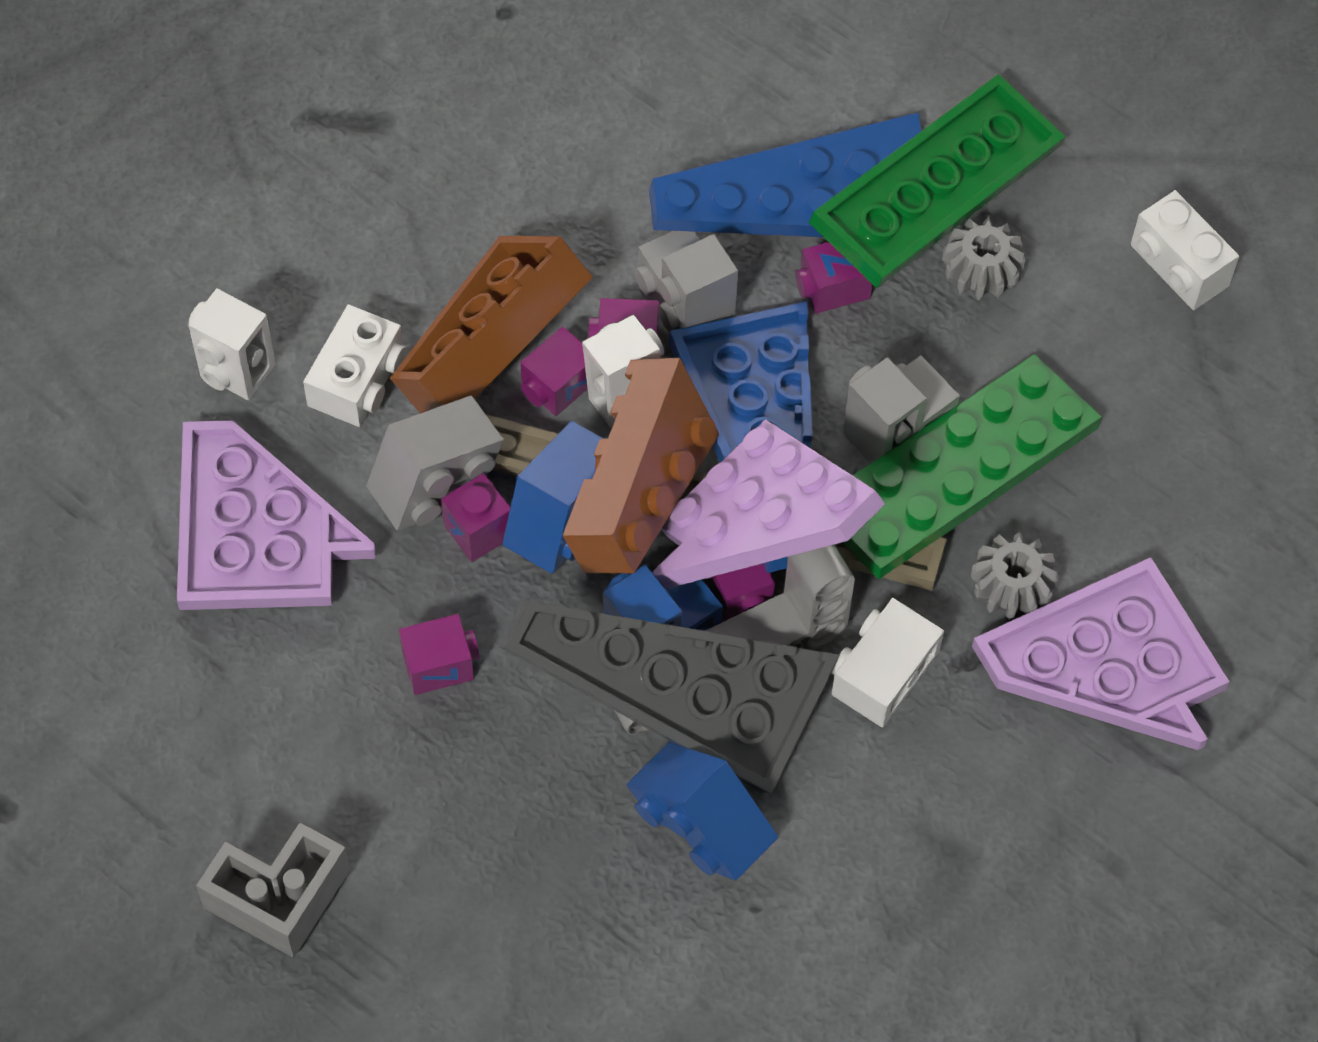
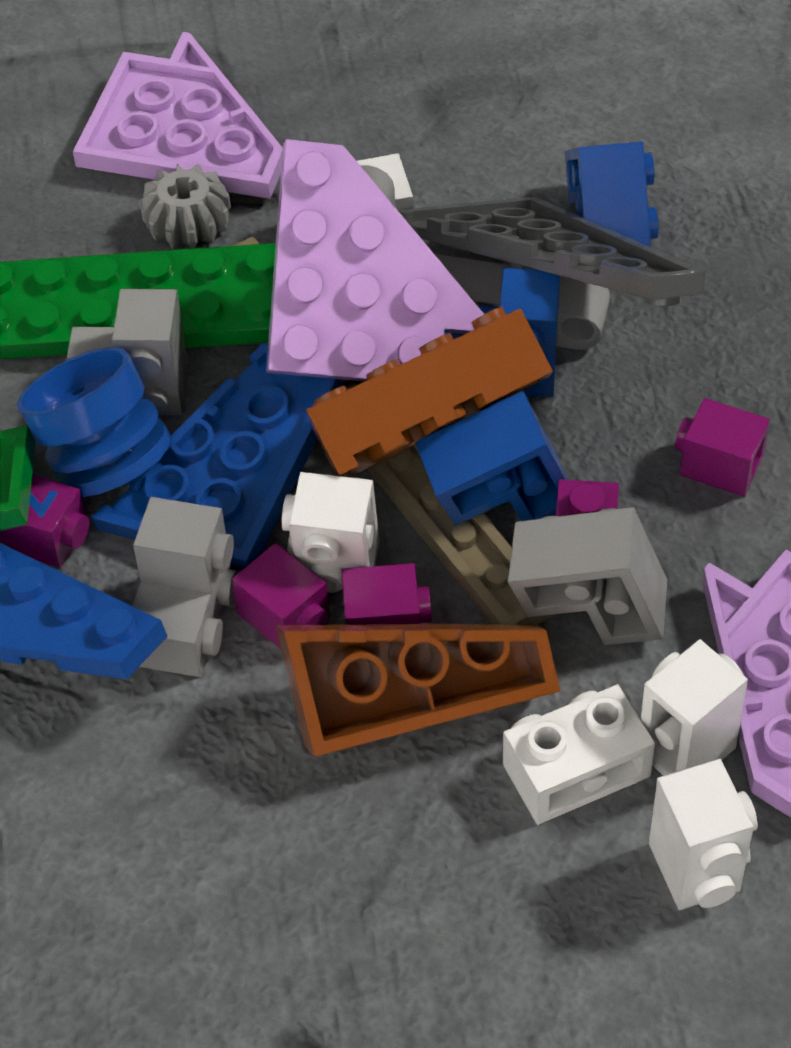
camera: 135 degrees left, 10 degrees down
(295, 414) = (693, 708): none -> white brick
(854, 325) = (95, 421): none -> blue wheel

